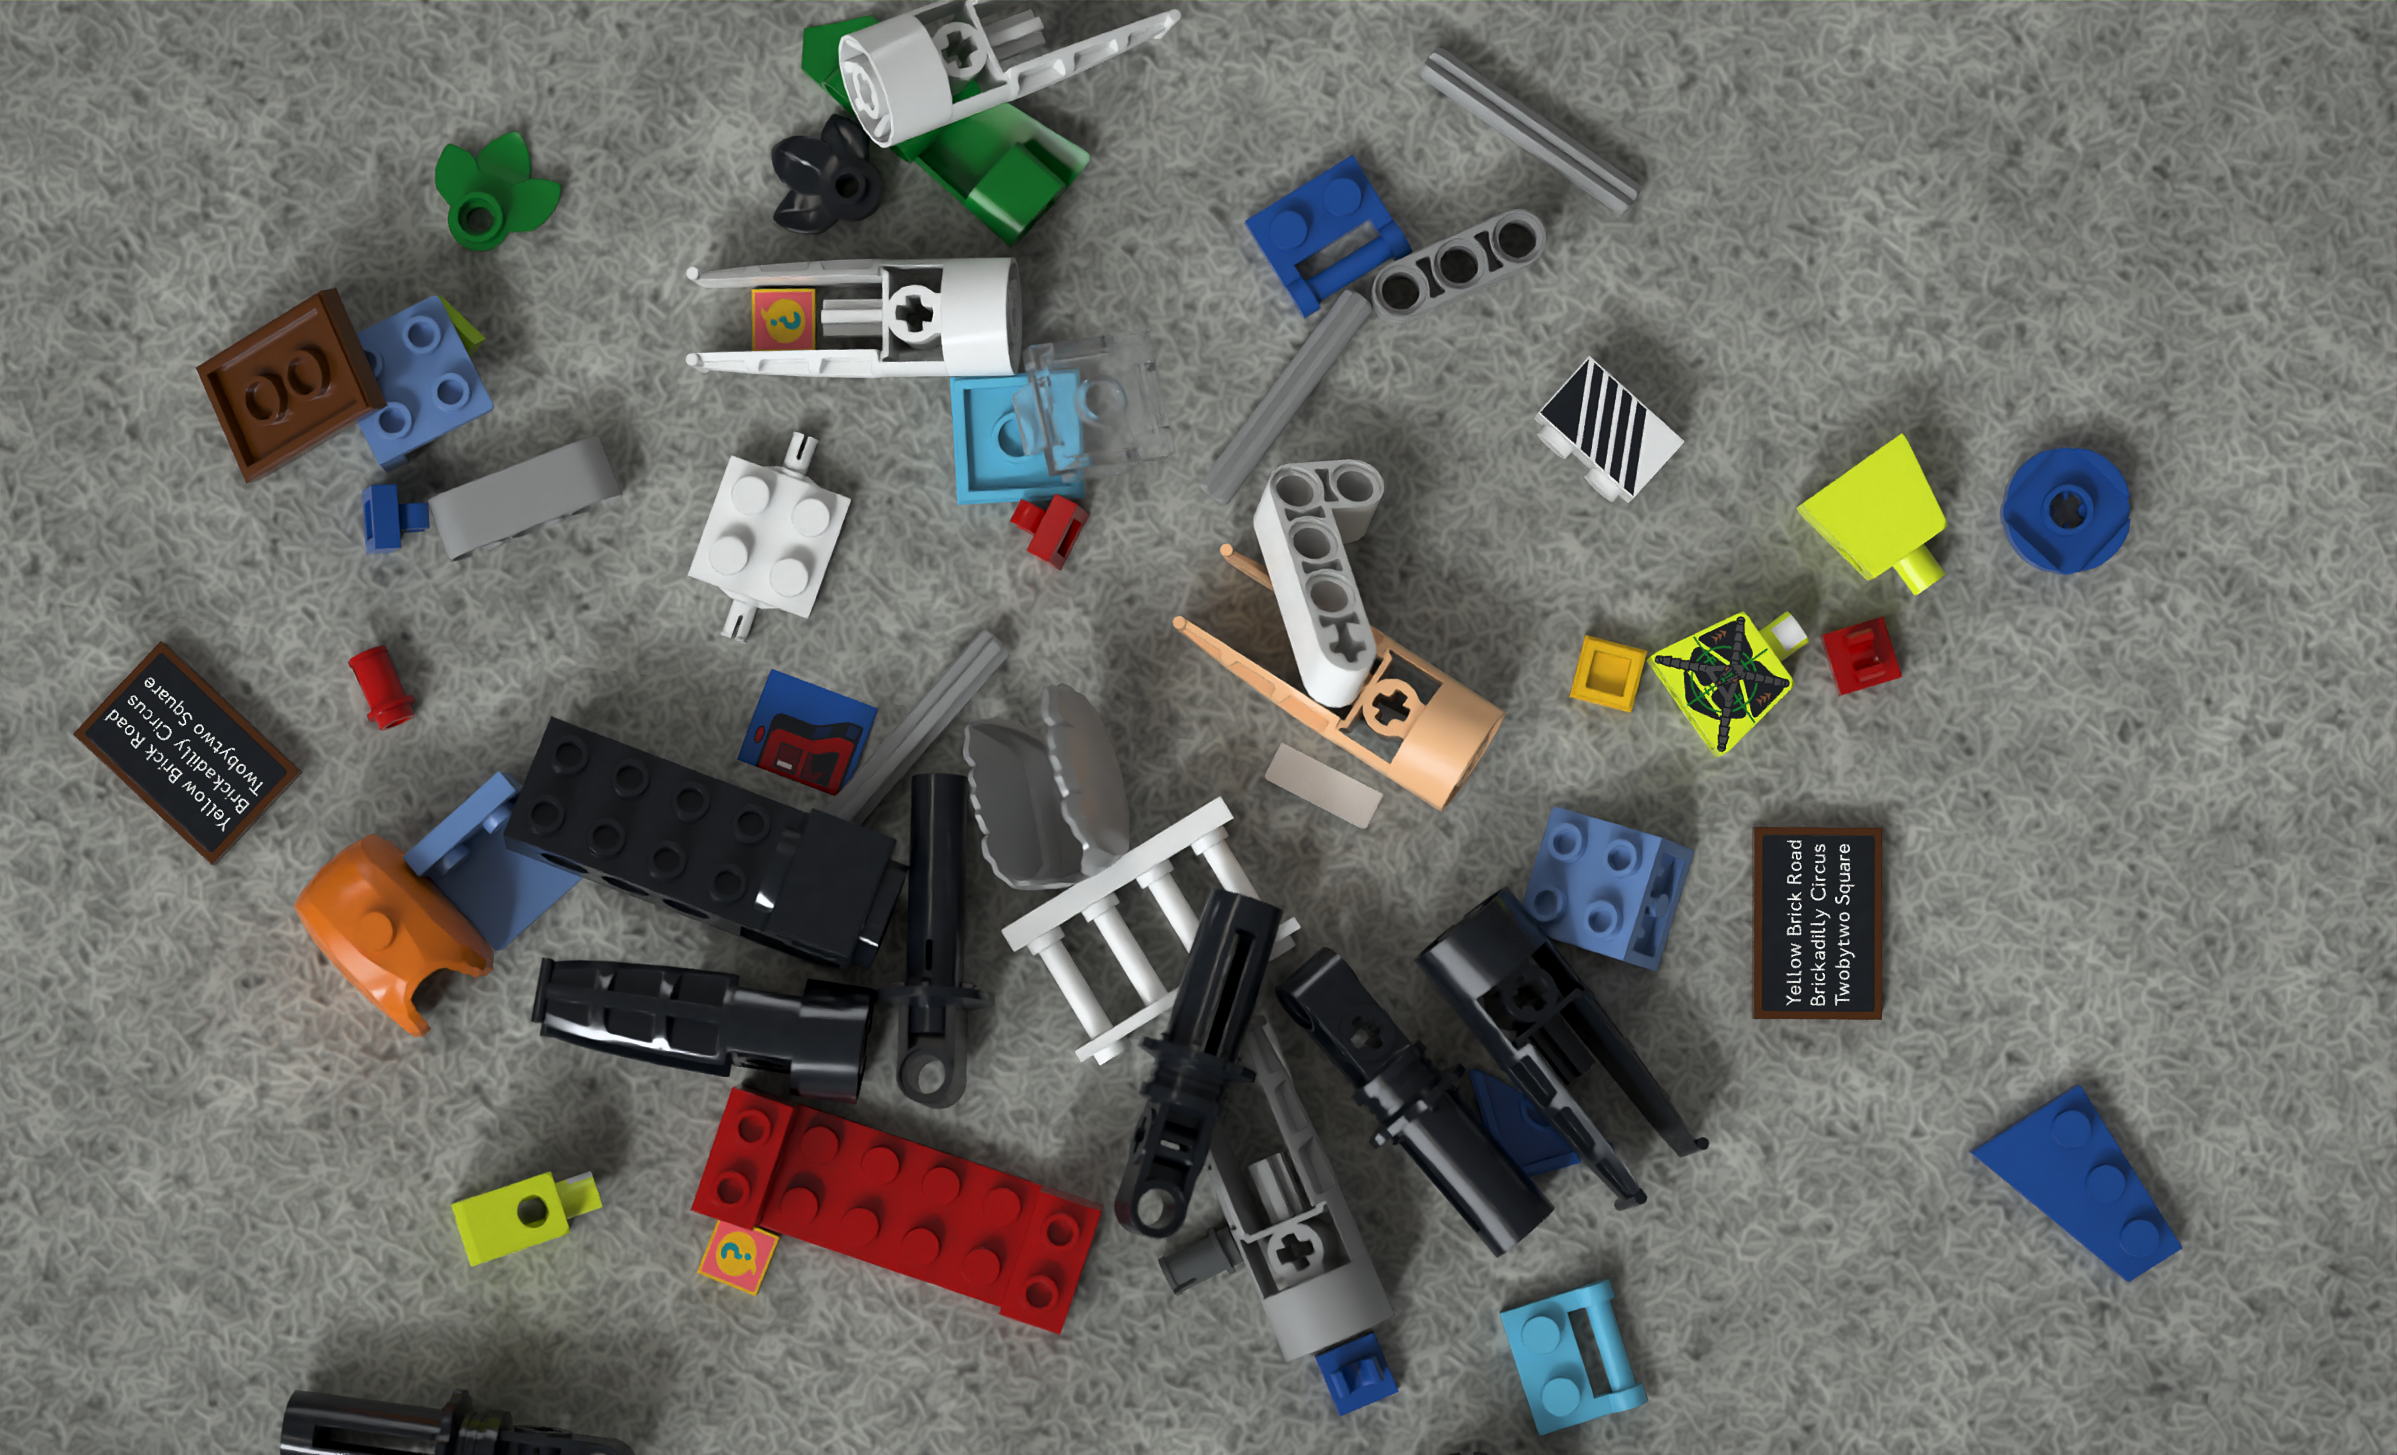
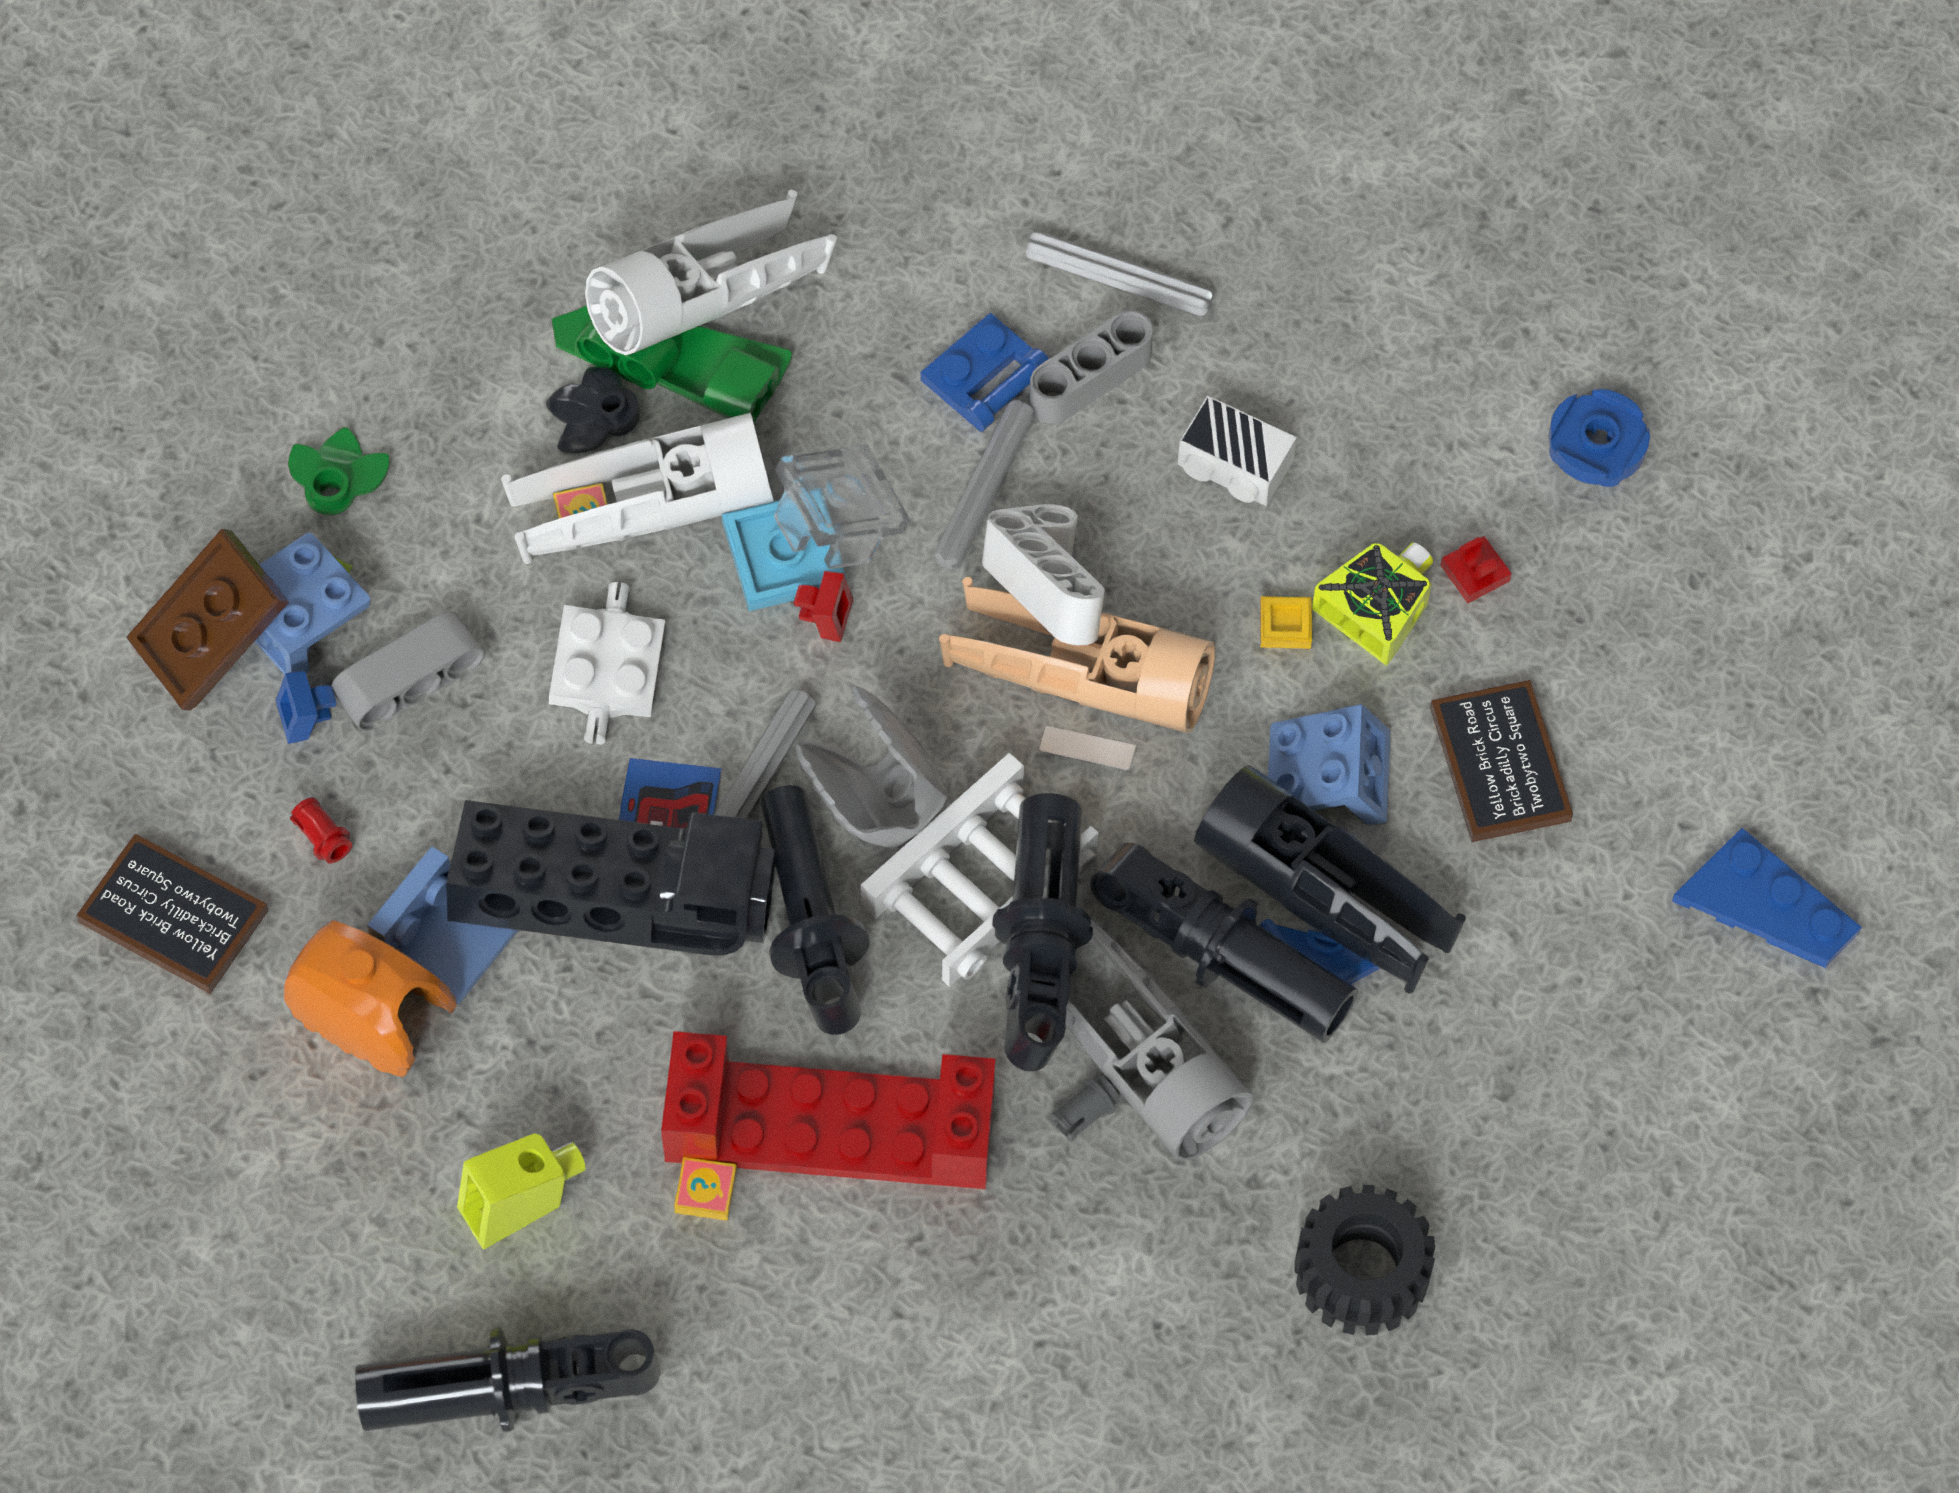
camera: 20 degrees left, 25 degrees down
(709, 1023) = (637, 1003): black piece -> none
(1356, 1373) = (1234, 1168): blue tile -> none
(1552, 1362) = (1391, 1126): medium azure plate -> none
(1881, 516) = (1459, 466): neon yellow torso -> none

